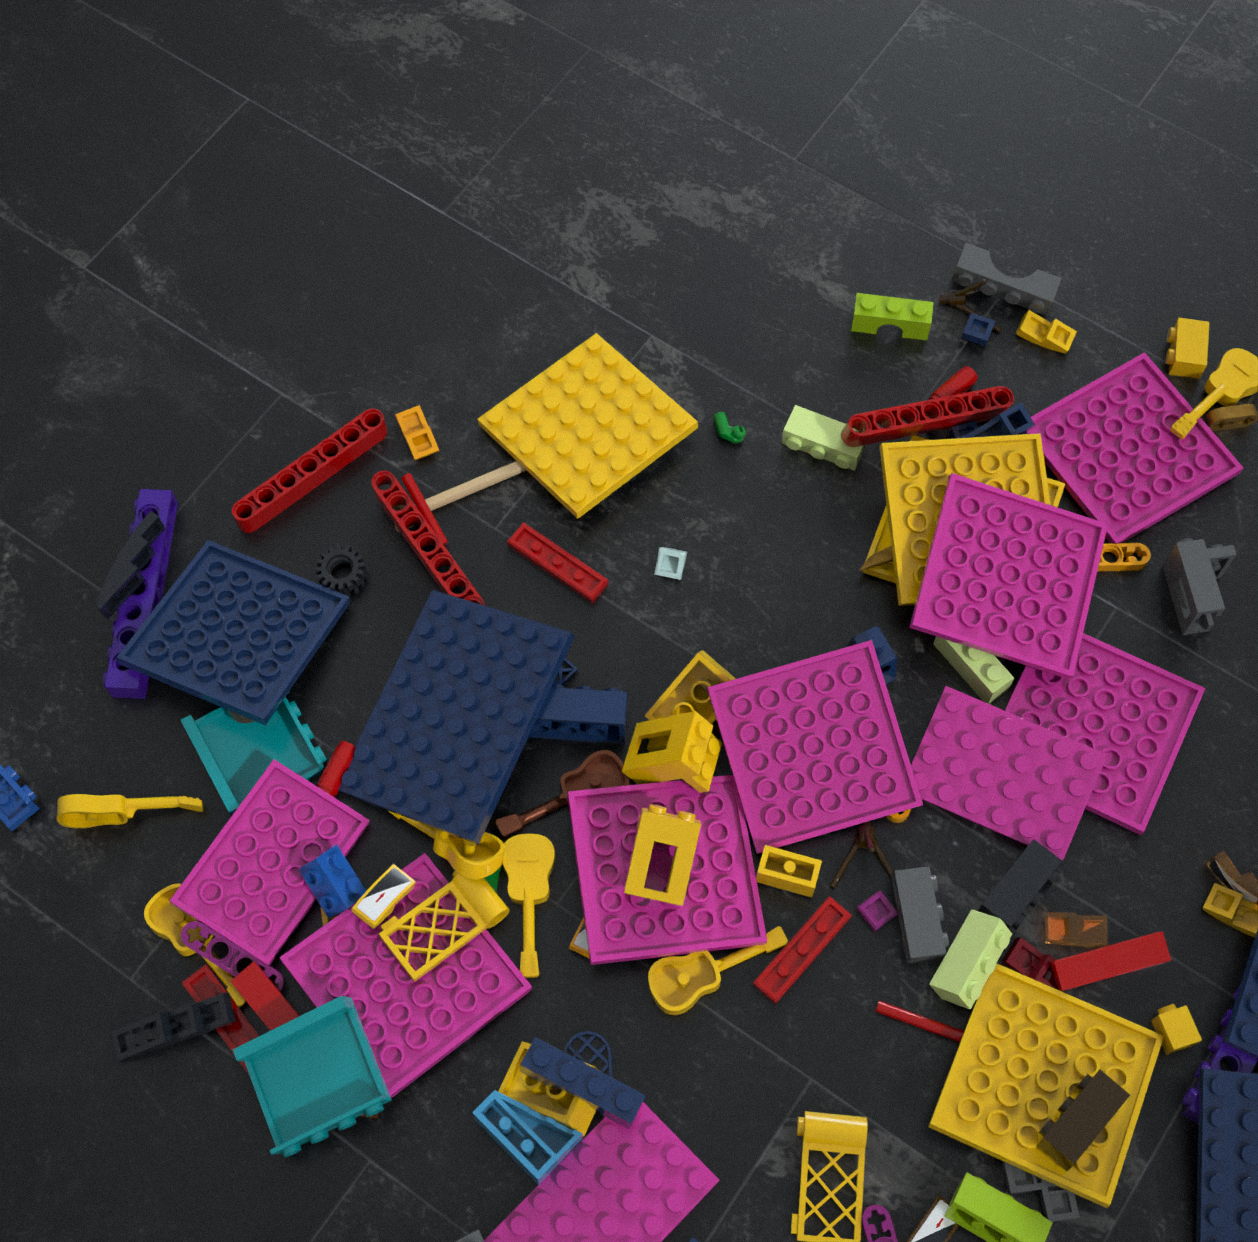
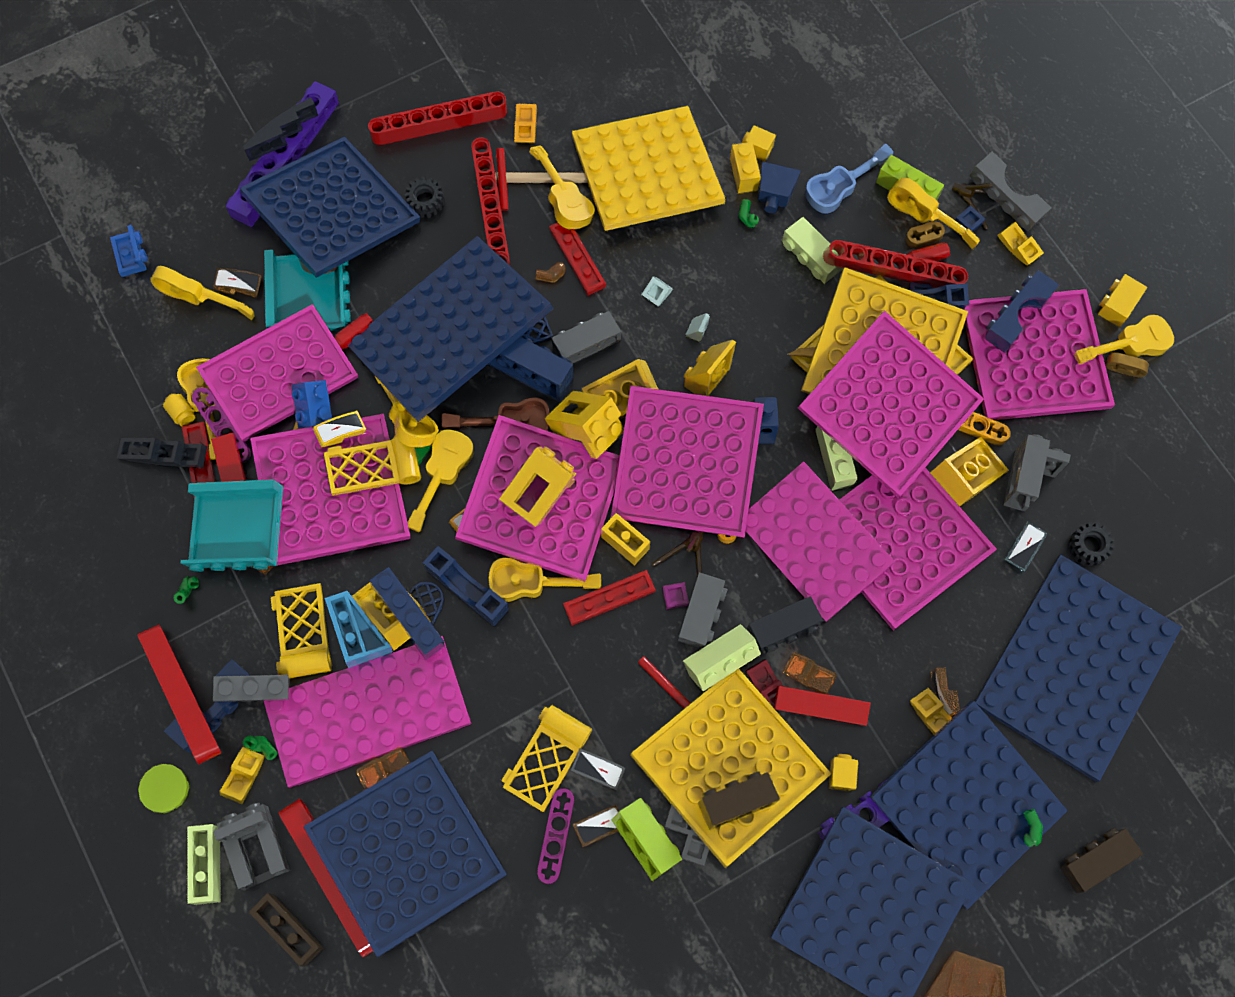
camera: 20 degrees right, 5 degrees up
(161, 772) = (237, 280): none -> slope
(168, 963) = (179, 409): none -> yellow brick
(286, 1183) = (185, 588): none -> green arm
(480, 1201) = (308, 659): none -> yellow piece
(521, 507) = (570, 206): none -> yellow piece
(540, 595) = (552, 274): none -> clear orange arm
(609, 1012) = (458, 581): none -> dark blue arch
(619, 653) = (587, 337): none -> dark grey brick
(699, 342) = (762, 142): none -> yellow brick
(699, 376) = (745, 167): none -> yellow brick
(740, 583) = (697, 327): none -> light aqua slope
(744, 382) = (776, 185): none -> dark blue torso
(780, 626) = (710, 368): none -> yellow slope
(805, 361) = (829, 189): none -> medium blue piece
(897, 1162) = (598, 769): none -> slope
(908, 334) = (913, 200): none -> yellow piece
(941, 370) = (923, 231): none -> pearl gold beam
(1086, 434) = (1007, 327): none -> dark blue arch
(1128, 613) = (969, 471): none -> yellow slope
(1233, 670) = (1026, 546): none -> slope

